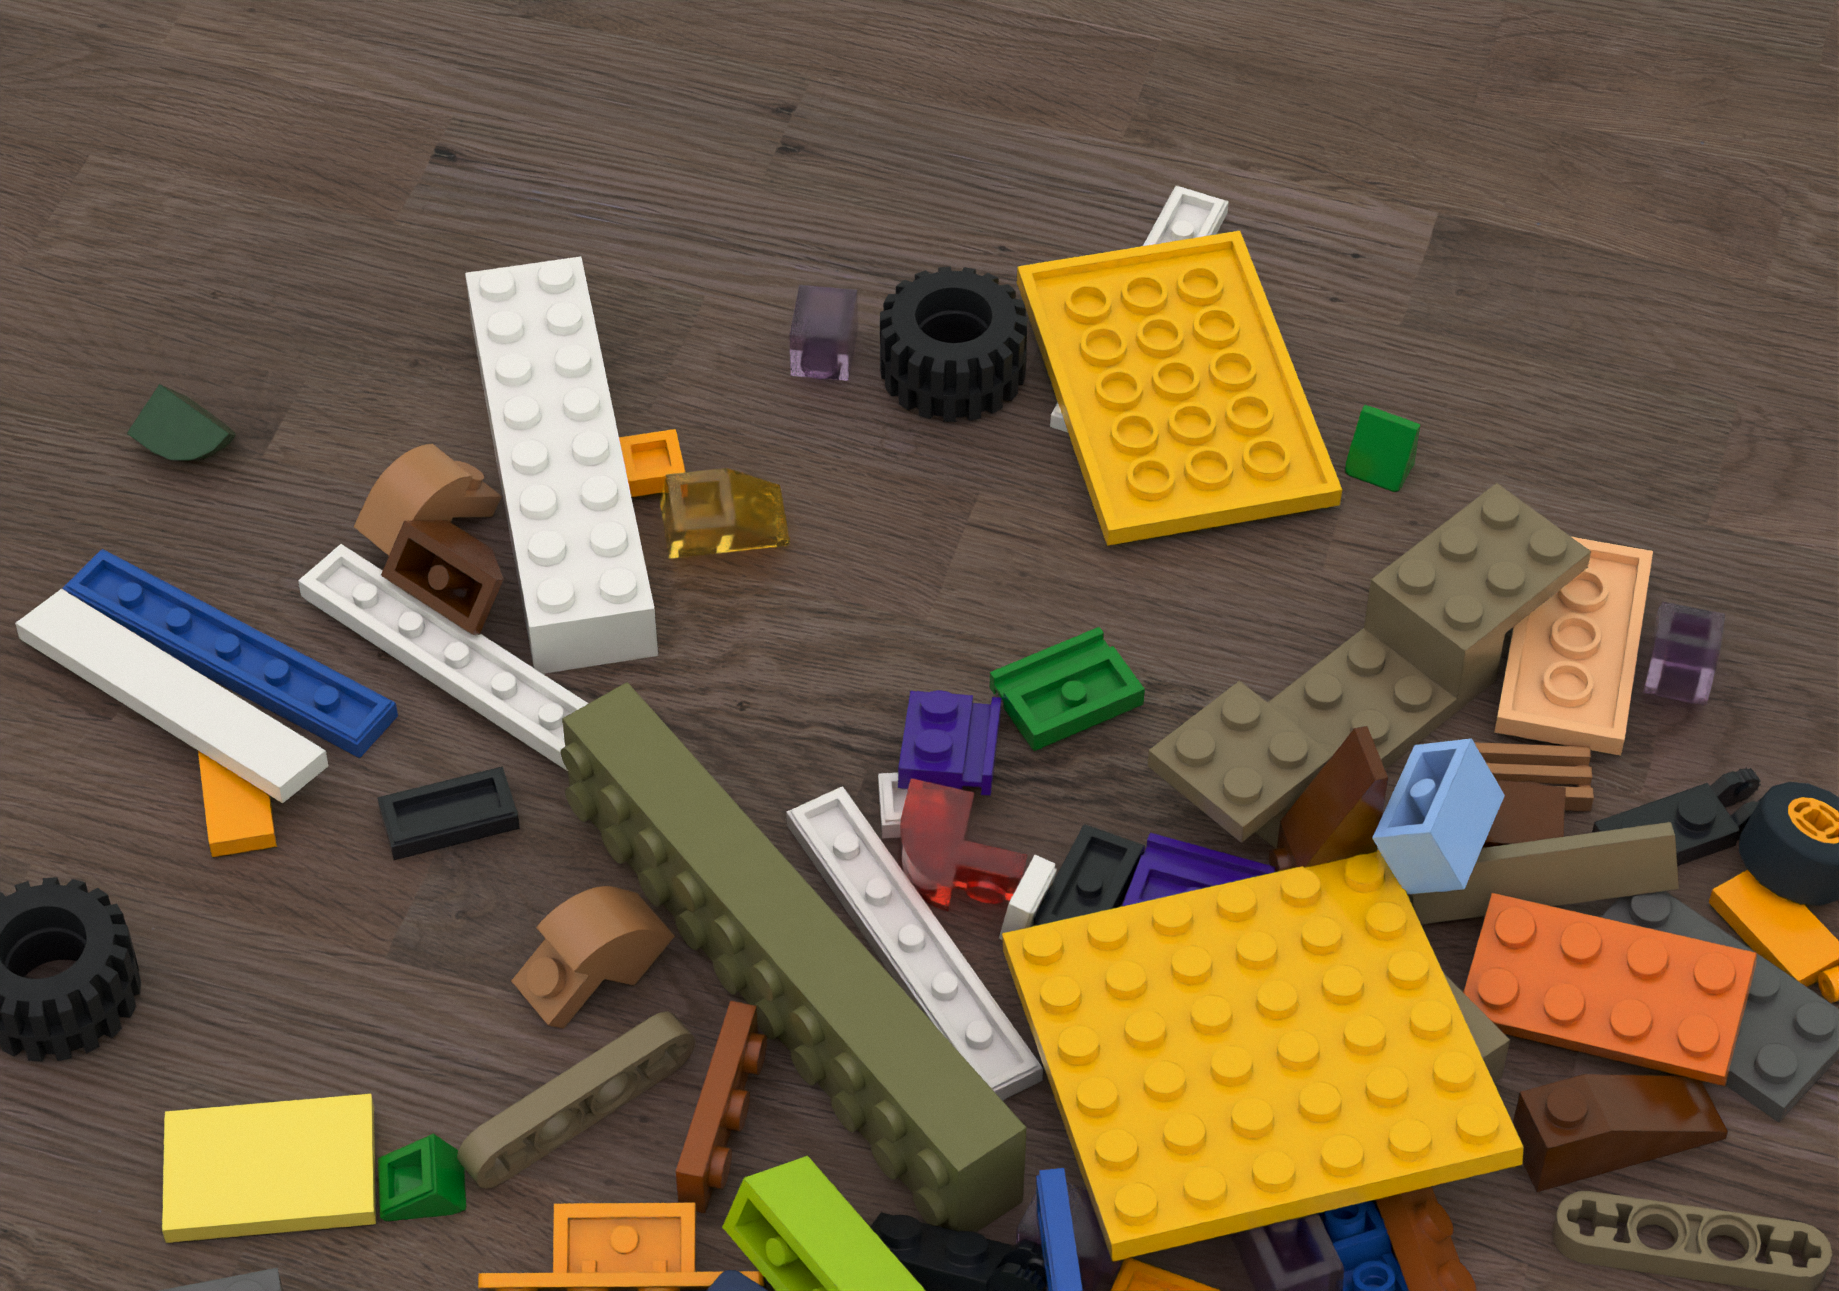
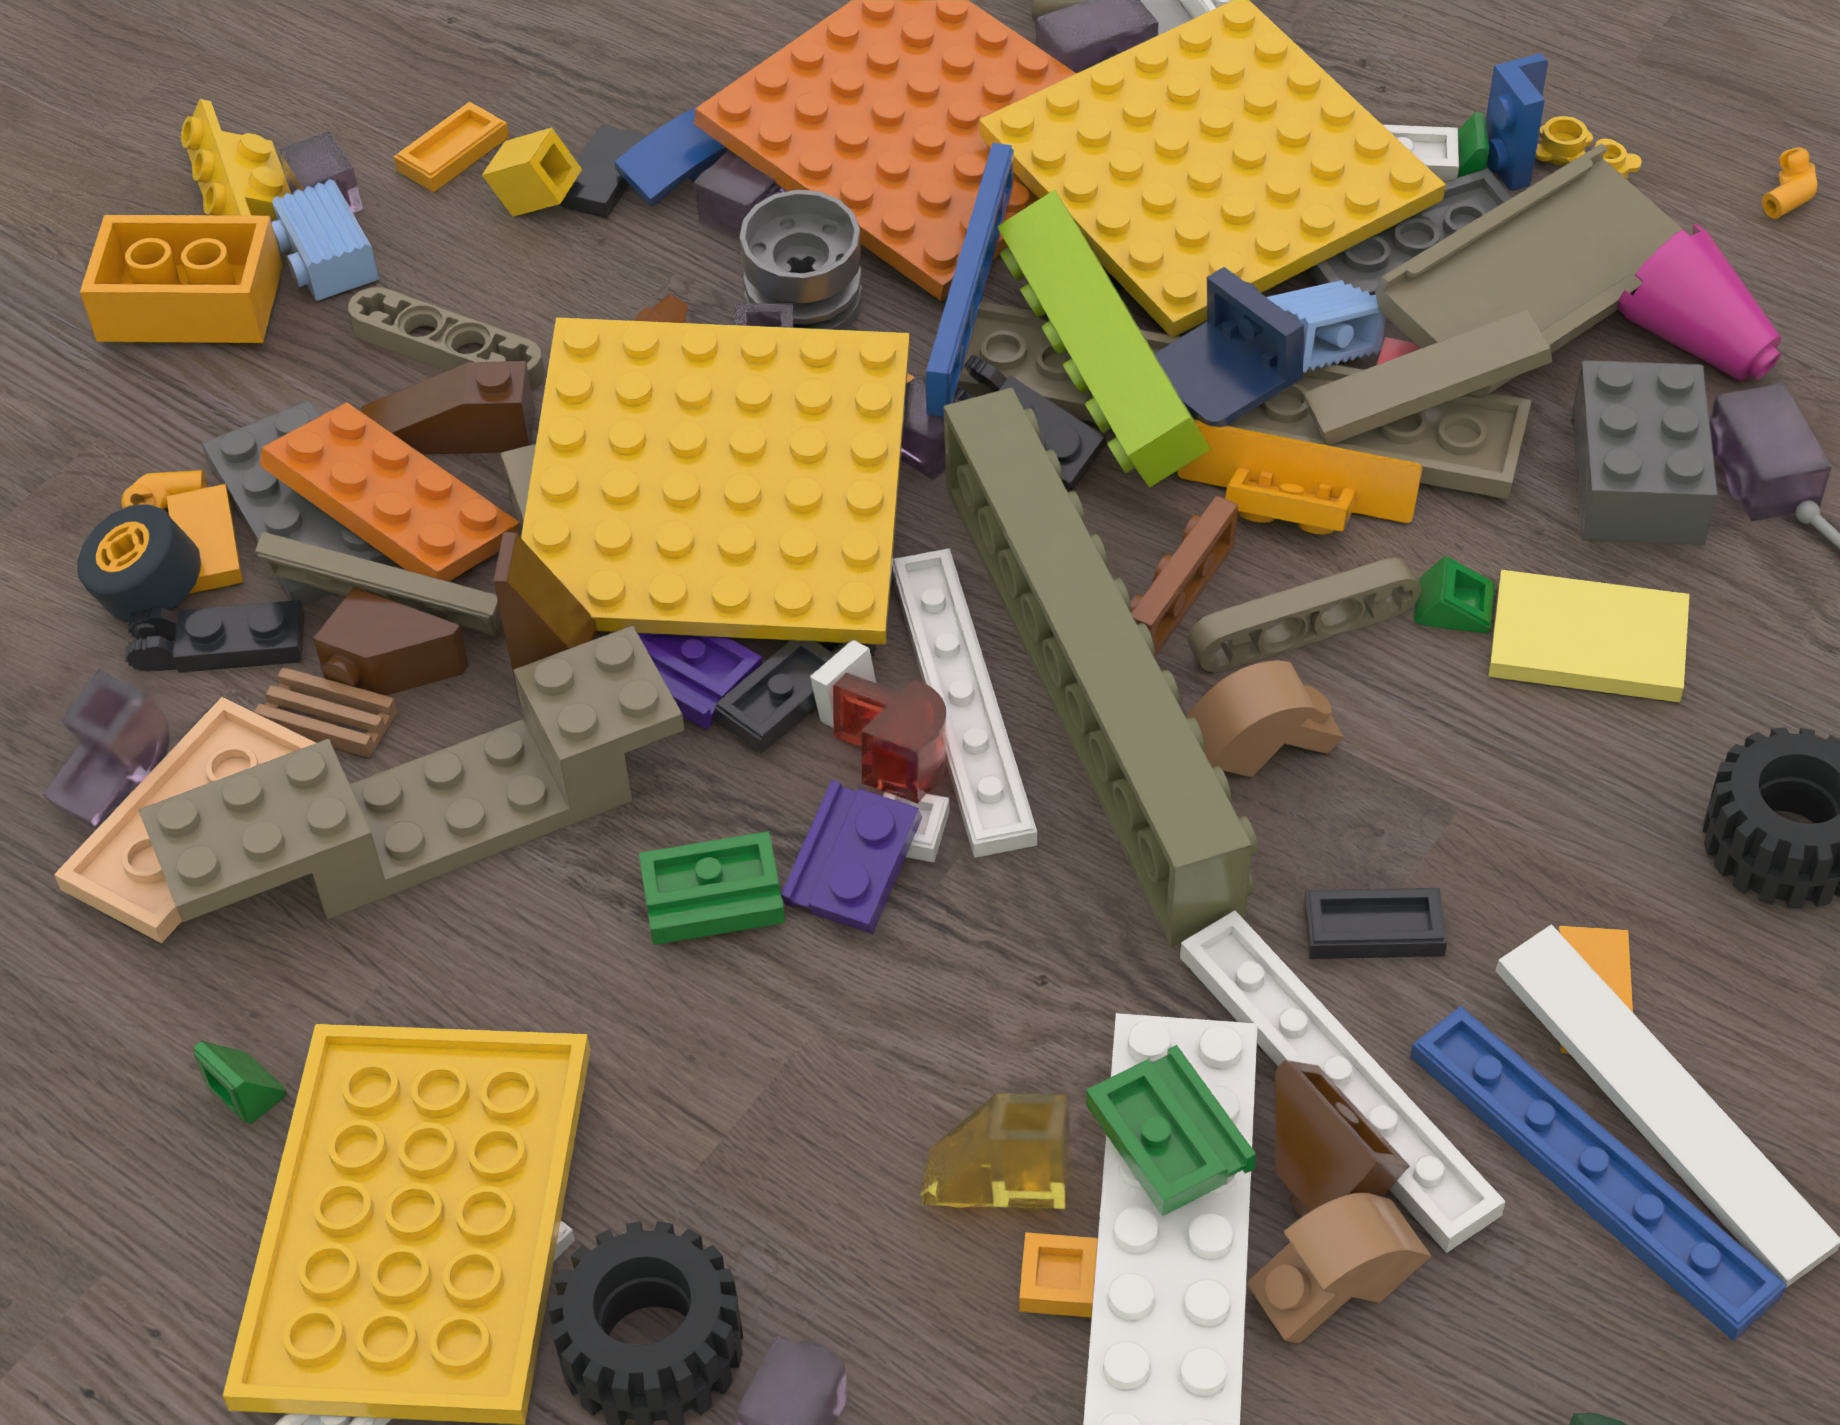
camera: 160 degrees left, 0 degrees up
(578, 489) = (1170, 1130): none -> green plate
(1438, 817) = (451, 577): light blue brick -> none

